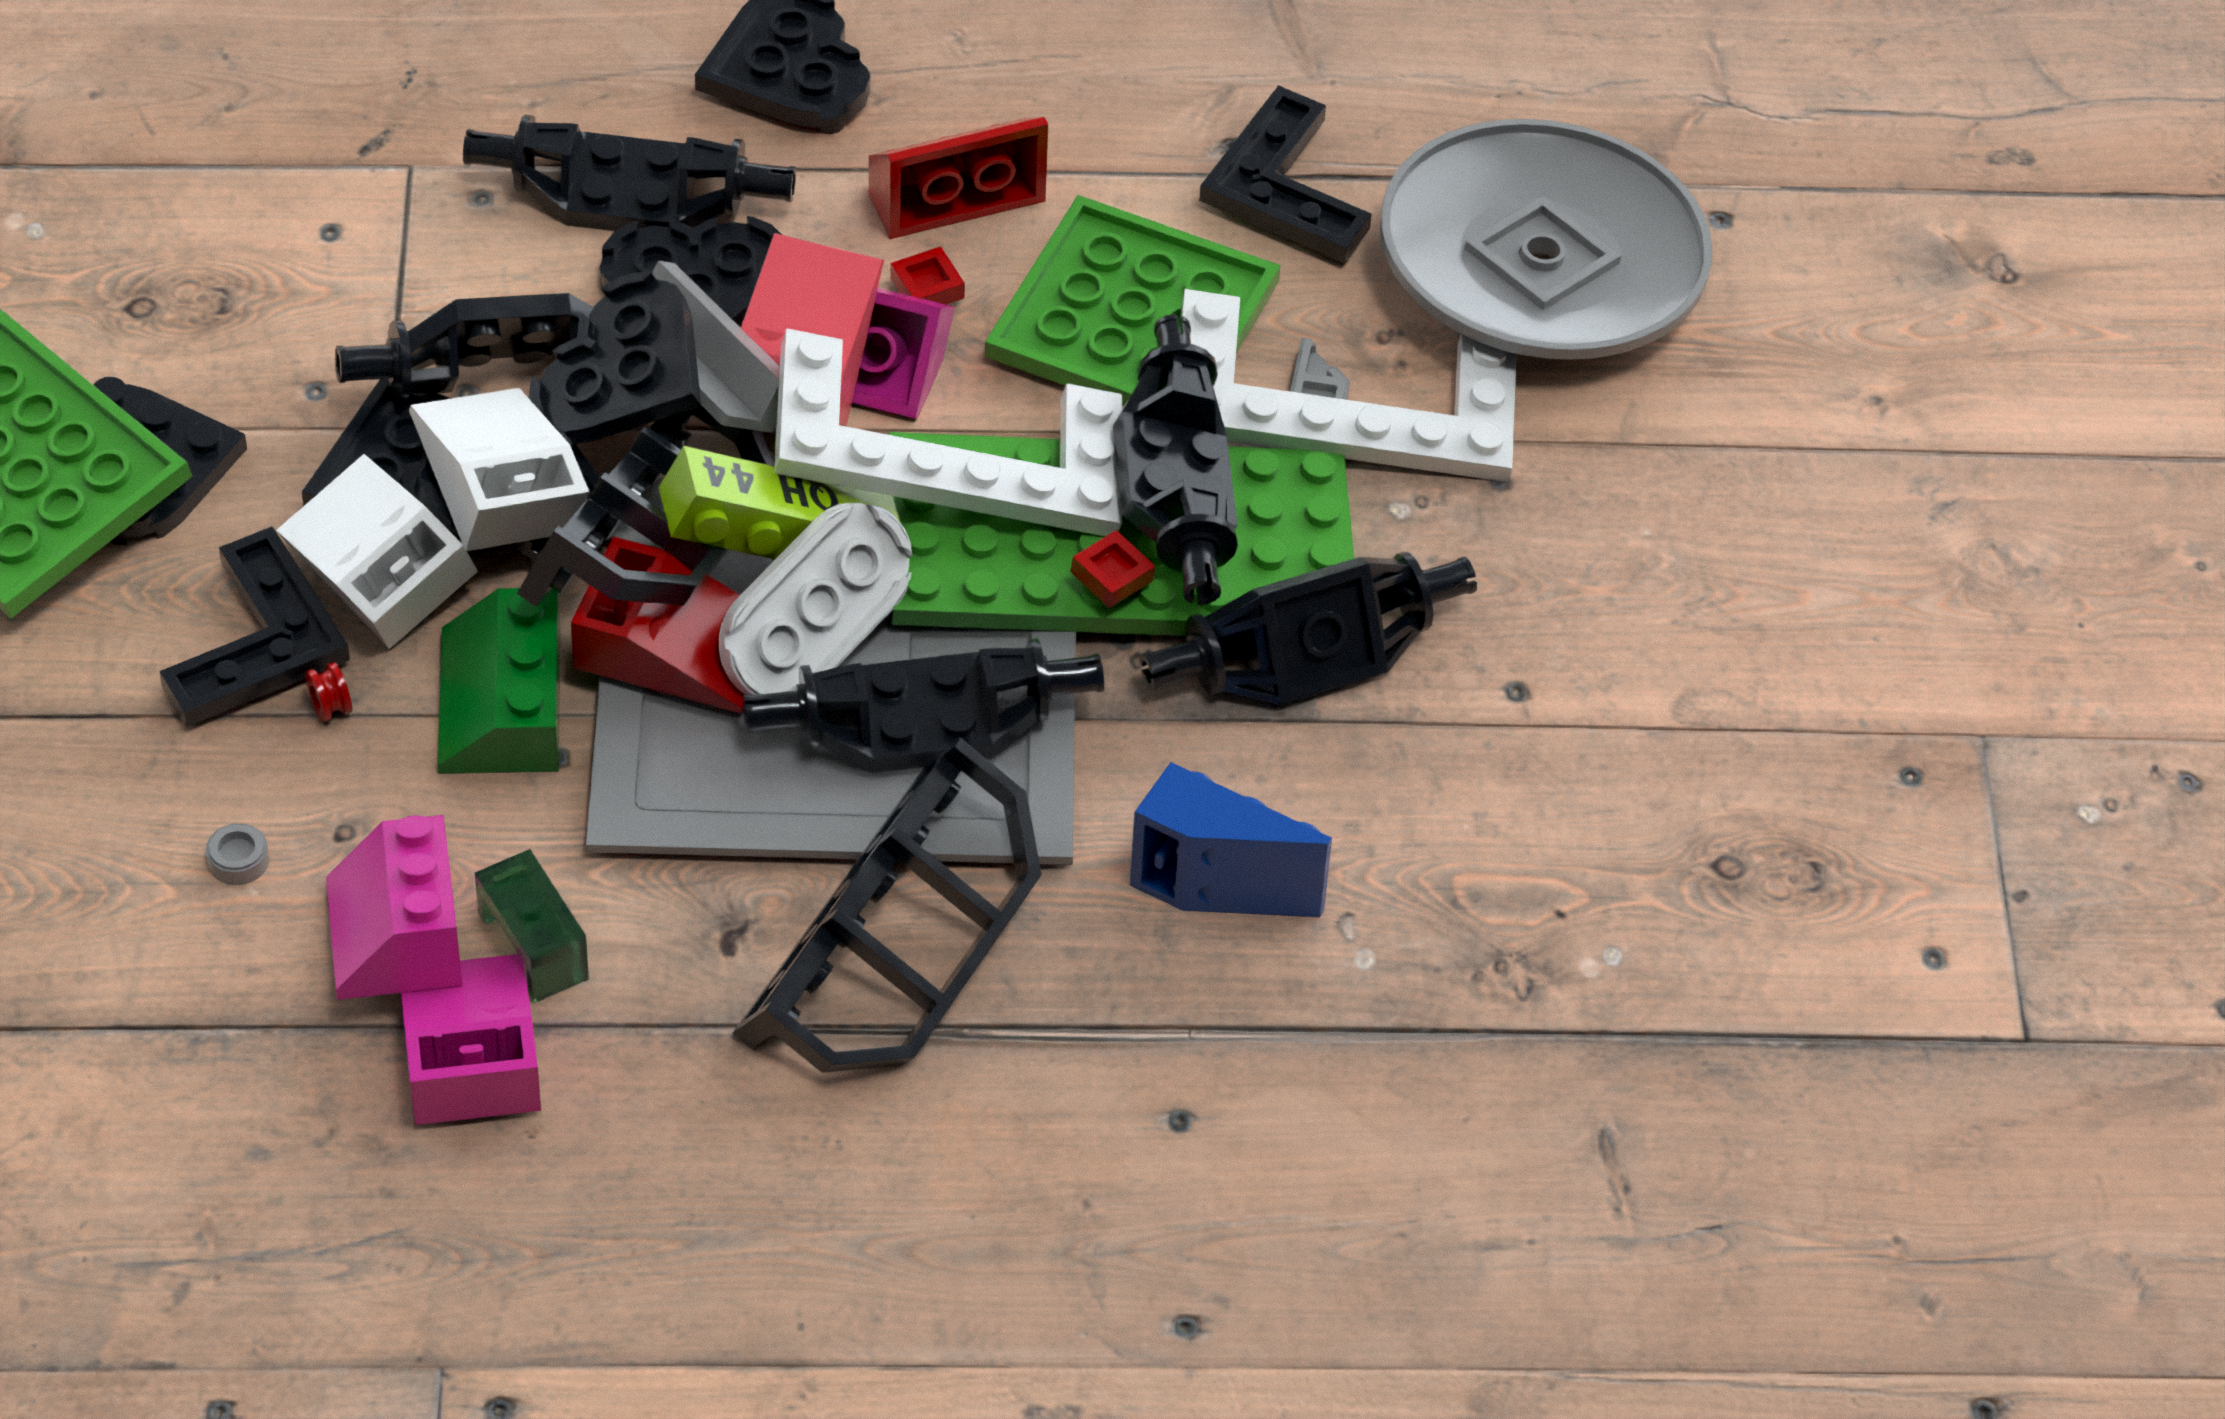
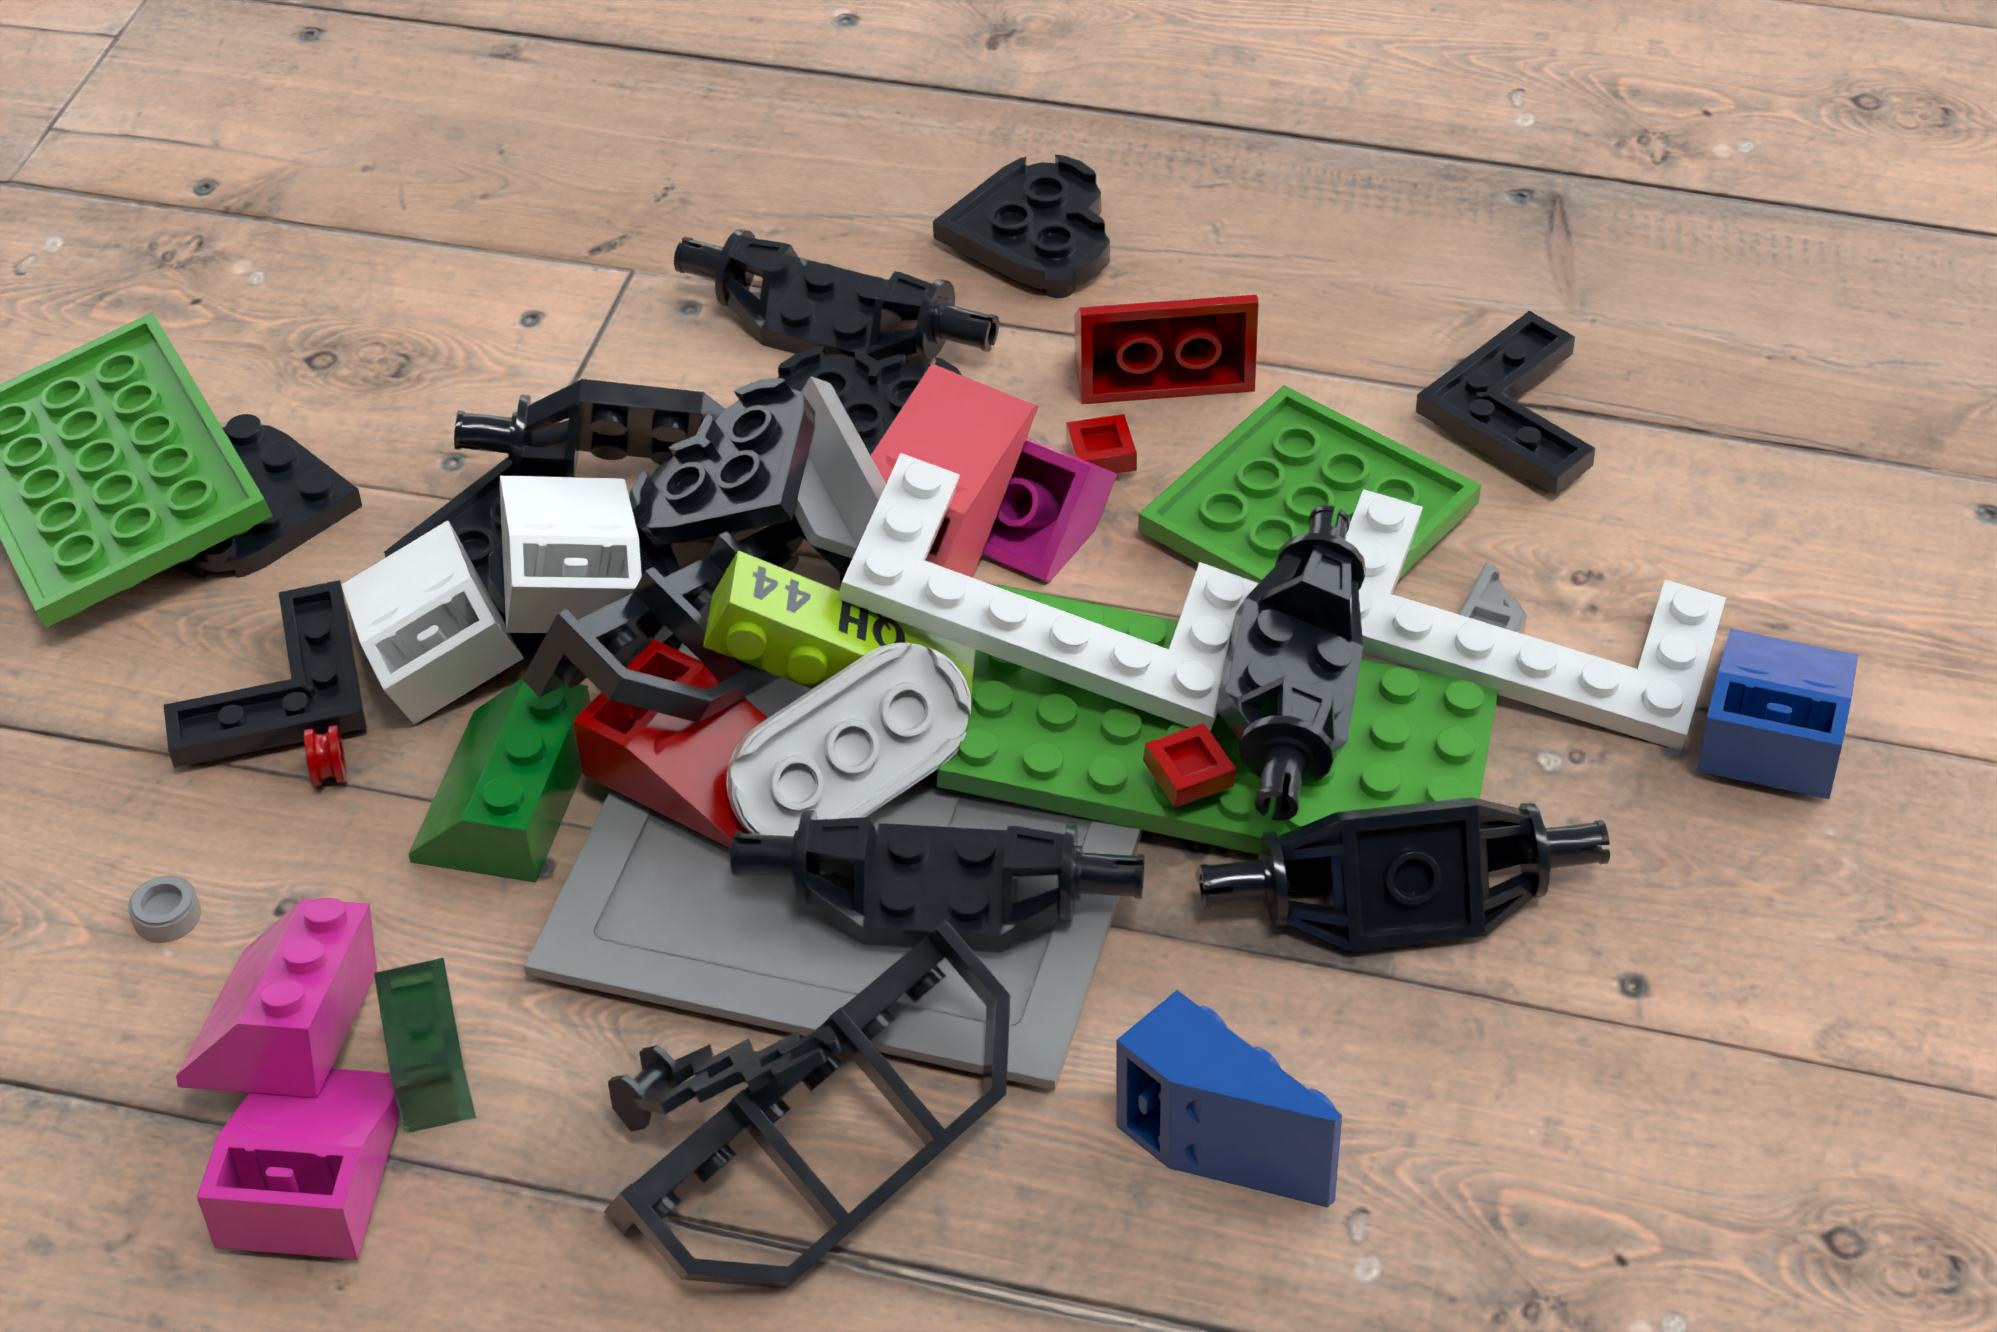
camera: 20 degrees right, 5 degrees down
(741, 913) = (660, 1083): none -> black piece
(1498, 192) = (1783, 501): light grey dish -> none
(1585, 434) = (1778, 713): none -> blue slope

